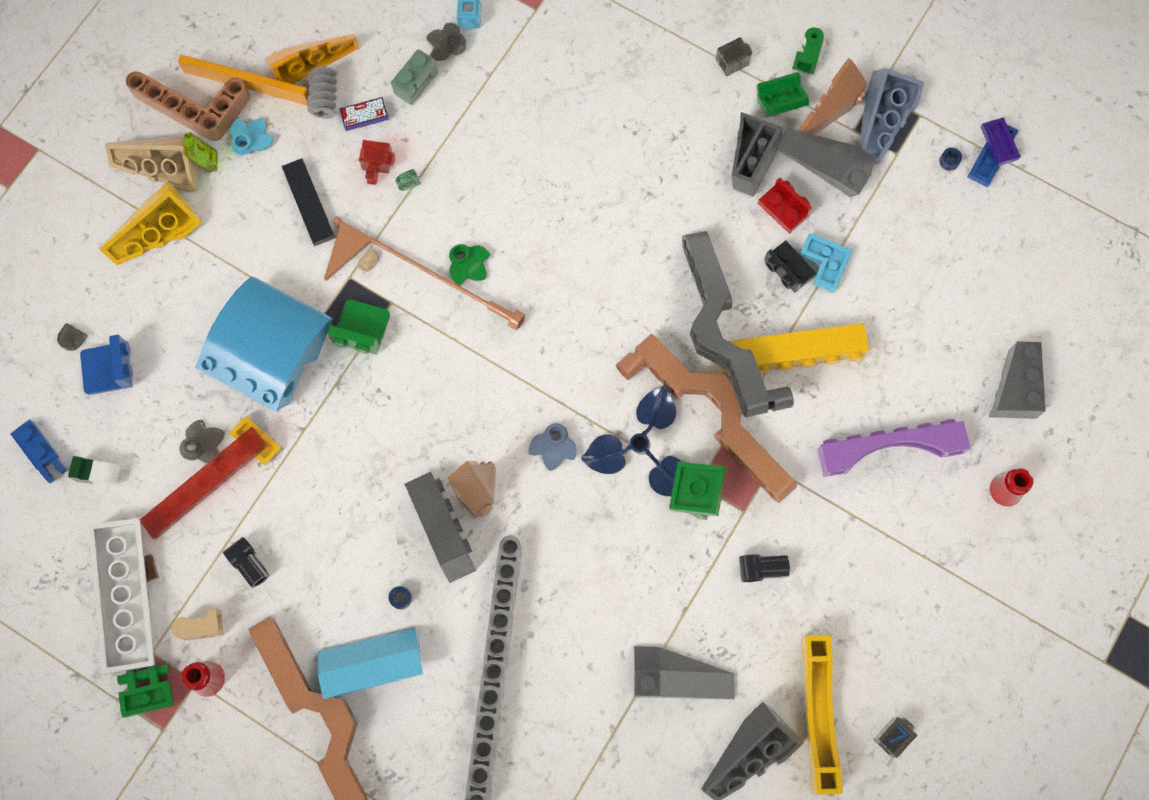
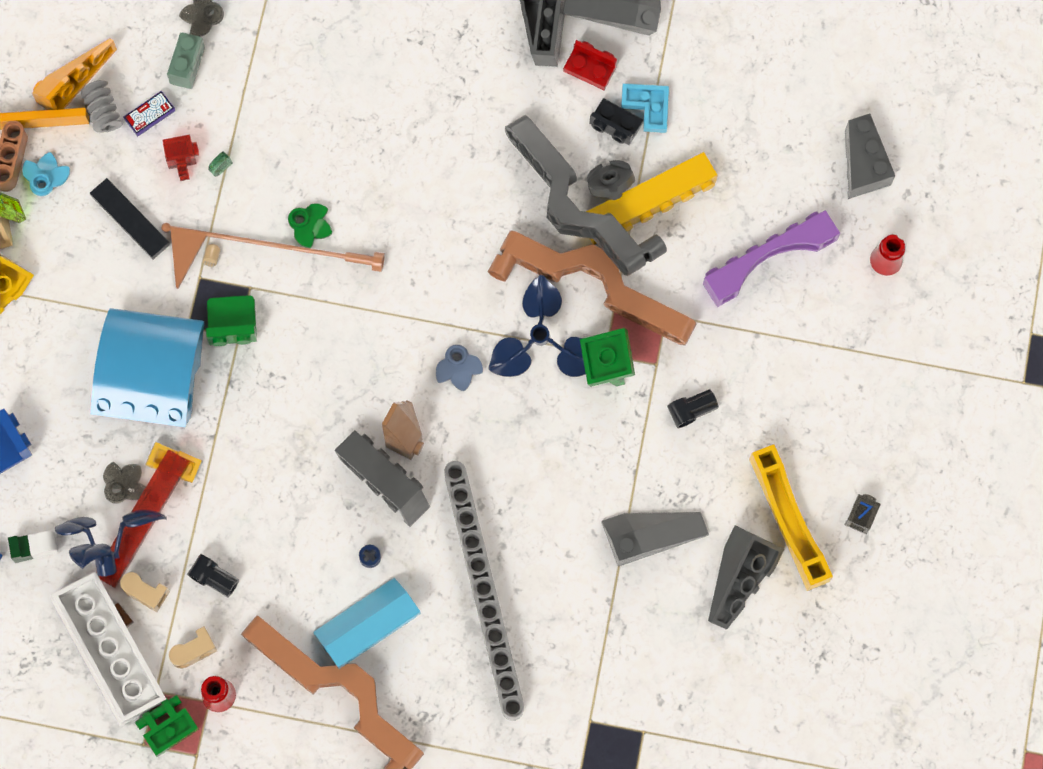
camera: 25 degrees left, 0 degrees up
(150, 507) = (102, 553): none -> dark blue plant
(173, 550) = (145, 594): none -> tan leg
(764, 319) = (610, 180): none -> dark grey plate

